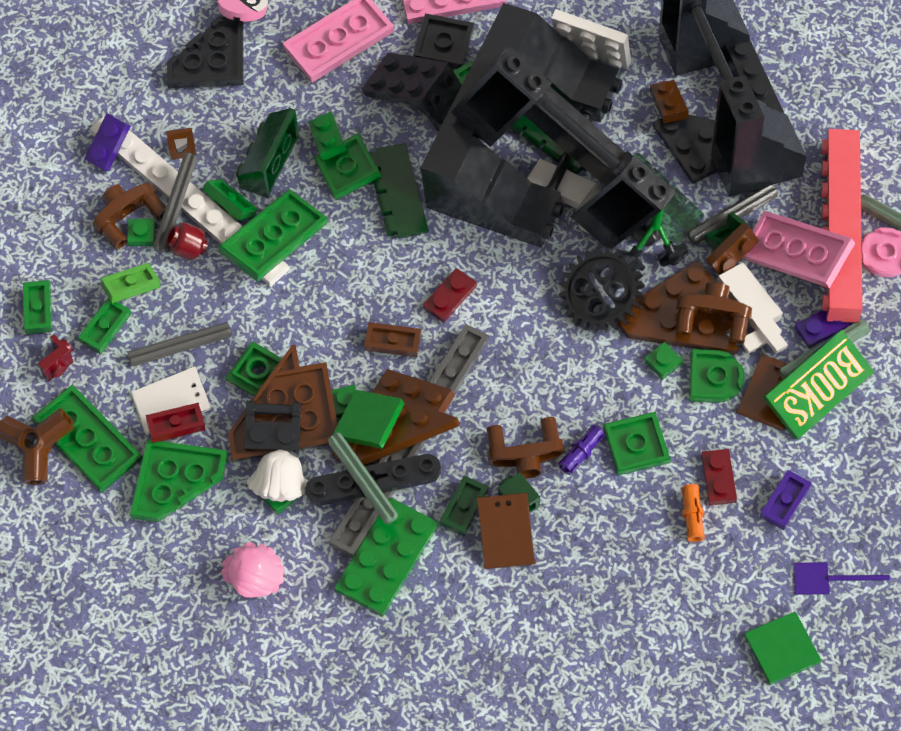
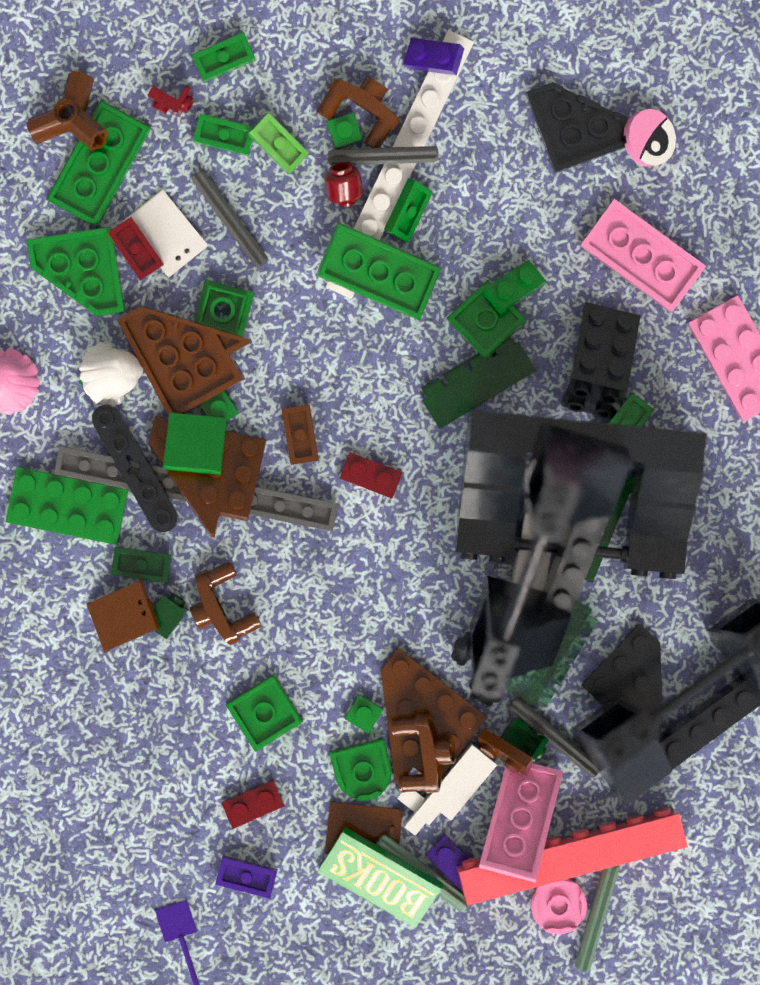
camera: 70 degrees right, 25 degrees up
(180, 142) = (459, 135): reddish brown slope -> none
(269, 152) = (473, 231): dark green slope -> none
(272, 435) = (150, 353): black plate -> none
(362, 478) = (125, 460): sand green axle -> none
(444, 40) = (671, 371): black plate -> none
(581, 449) = (238, 661): dark purple pin -> none
(594, 39) = (706, 535): white plate -> none
(621, 275) = (399, 615): black gear -> none
(669, 101) = (668, 634): reddish brown plate -> none
(693, 513) = (204, 790): orange pin -> none
(782, 648) = (93, 912): green tile -> none

